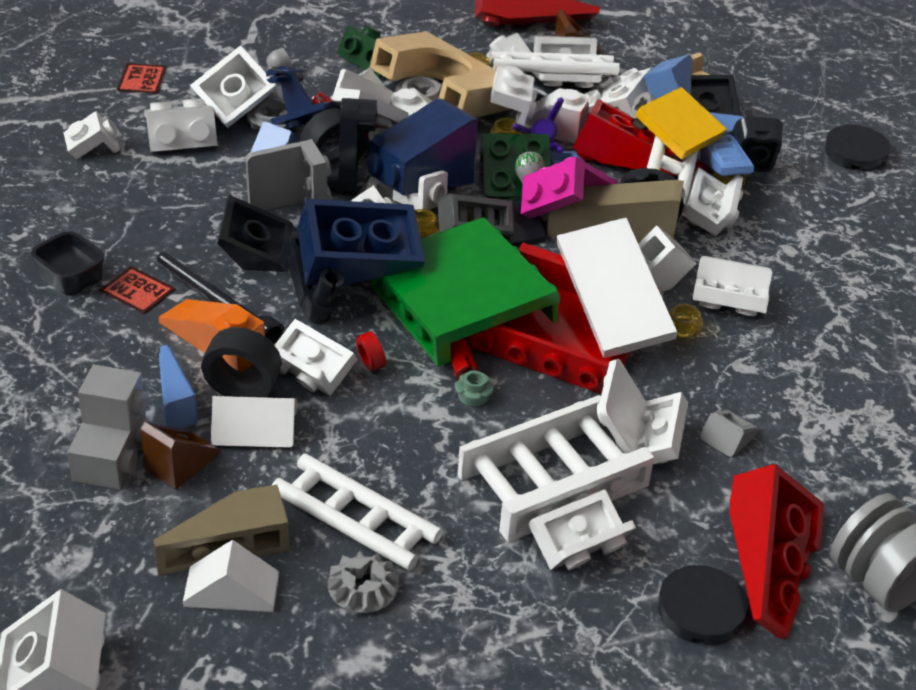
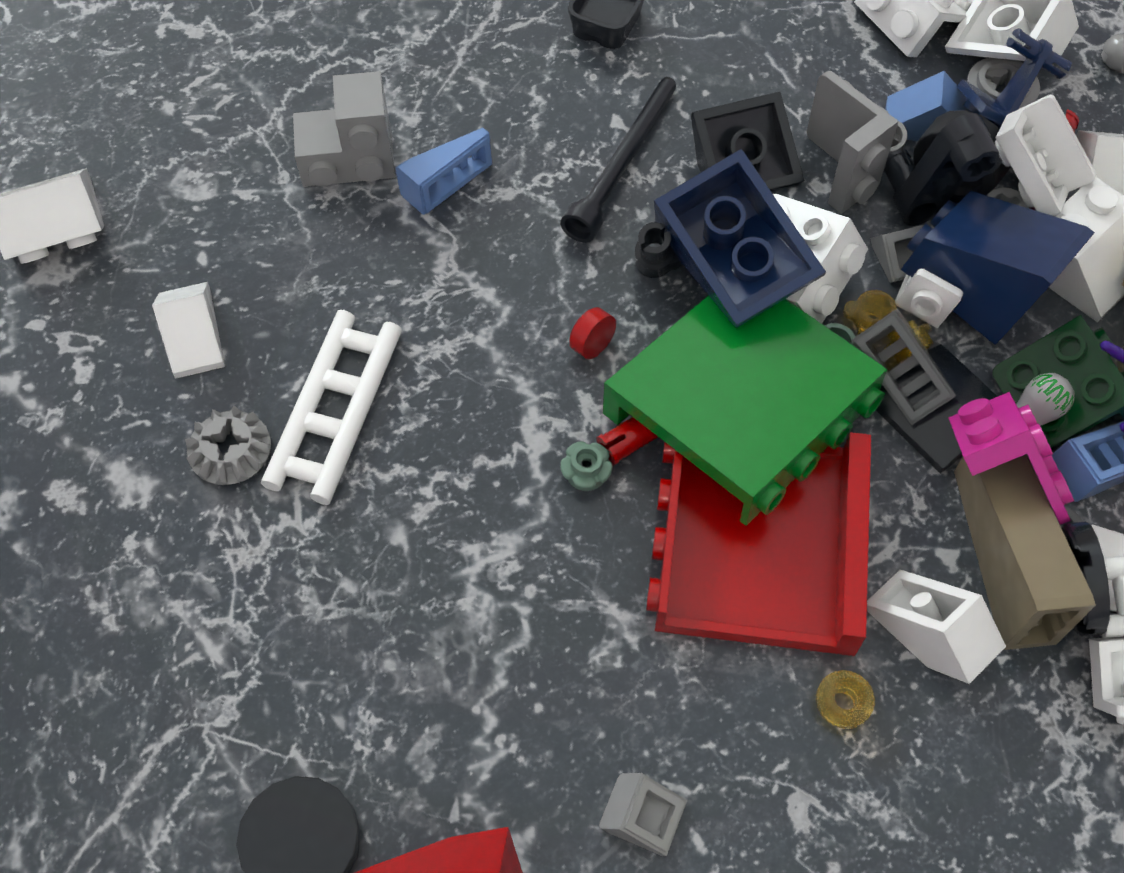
camera: 75 degrees right, 20 degrees up
(137, 289) = (611, 84): clear red sticker -> none
(174, 453) = (351, 206): reddish brown slope -> none
(202, 320) = (557, 175): orange slope -> none
(247, 345) = (490, 210): black tyre -> none
(248, 517) = (257, 296): dark tan slope -> none
(253, 421) = (436, 257): white panel -> none
(313, 358) = (548, 274): white bracket -> none
(578, 529) = (363, 656): white bracket -> none
(616, 288) = (829, 576): white tile -> none
(618, 476) = (454, 647): white fence -> none
(641, 423) = (584, 672): white bracket -> none
(732, 285) = (949, 752): white bracket -> none

